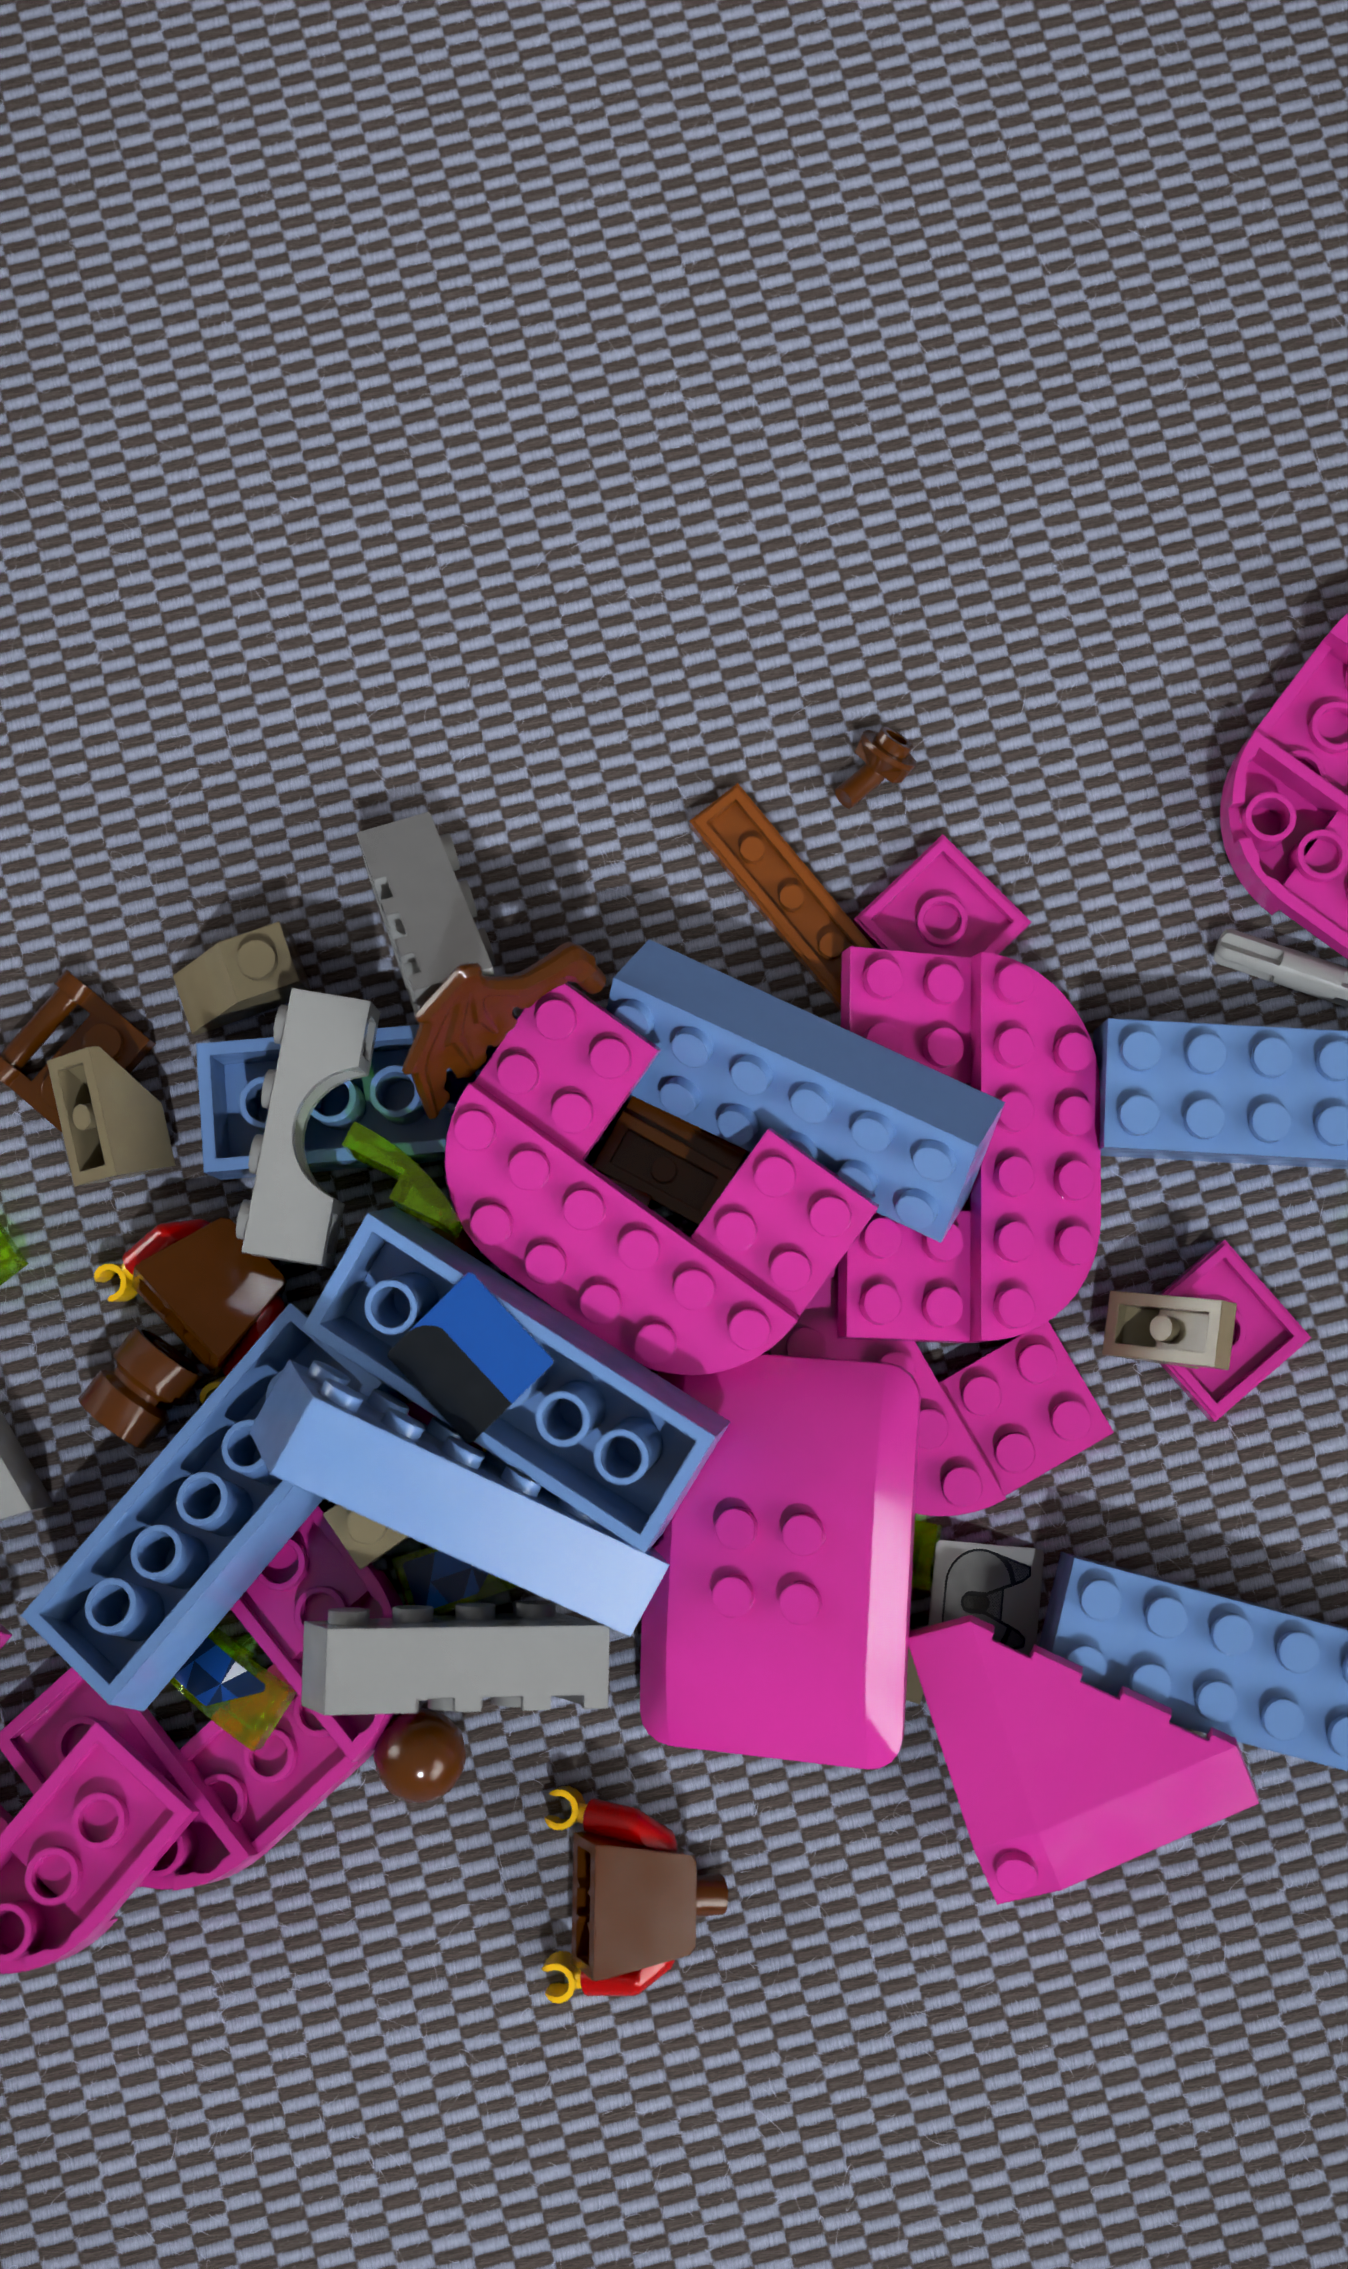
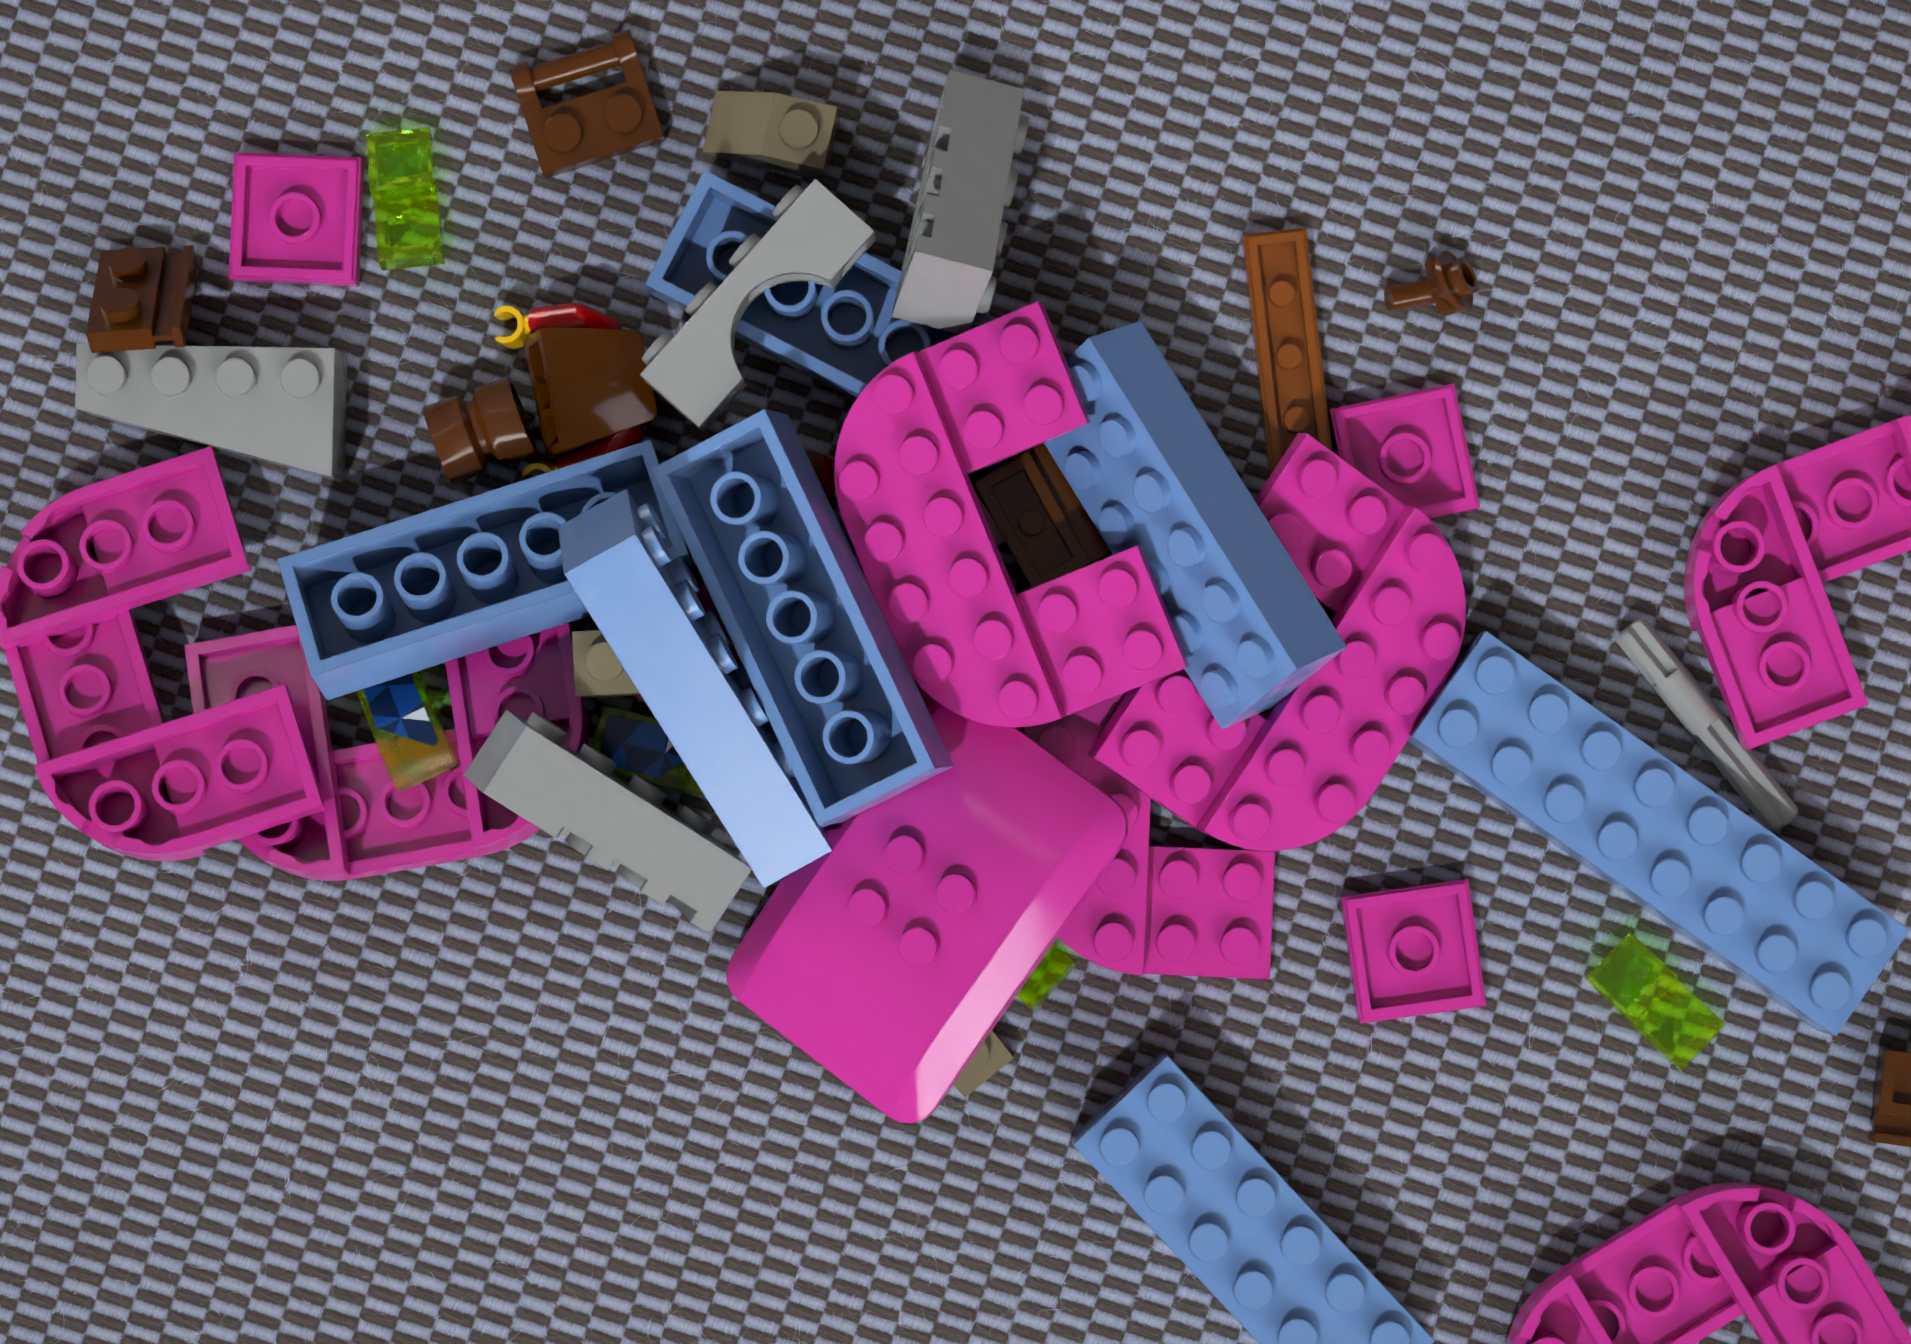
camera: 25 degrees right, 5 degrees up
(107, 1119) = (589, 185): dark tan slope -> none
(415, 1190) = (813, 413): clear neon green slope -> none
(420, 1756) = (528, 879): reddish brown piece -> none
(470, 1358) = (775, 580): sticker -> none
(477, 1012) = (958, 299): reddish brown animal -> none
(629, 1900) = (628, 1103): reddish brown torso -> none
(991, 1584) = (1071, 1051): sticker -> none
(1060, 1771) = (1045, 1217): dark pink slope -> none
(1170, 1329) = (1367, 921): dark tan slope -> none

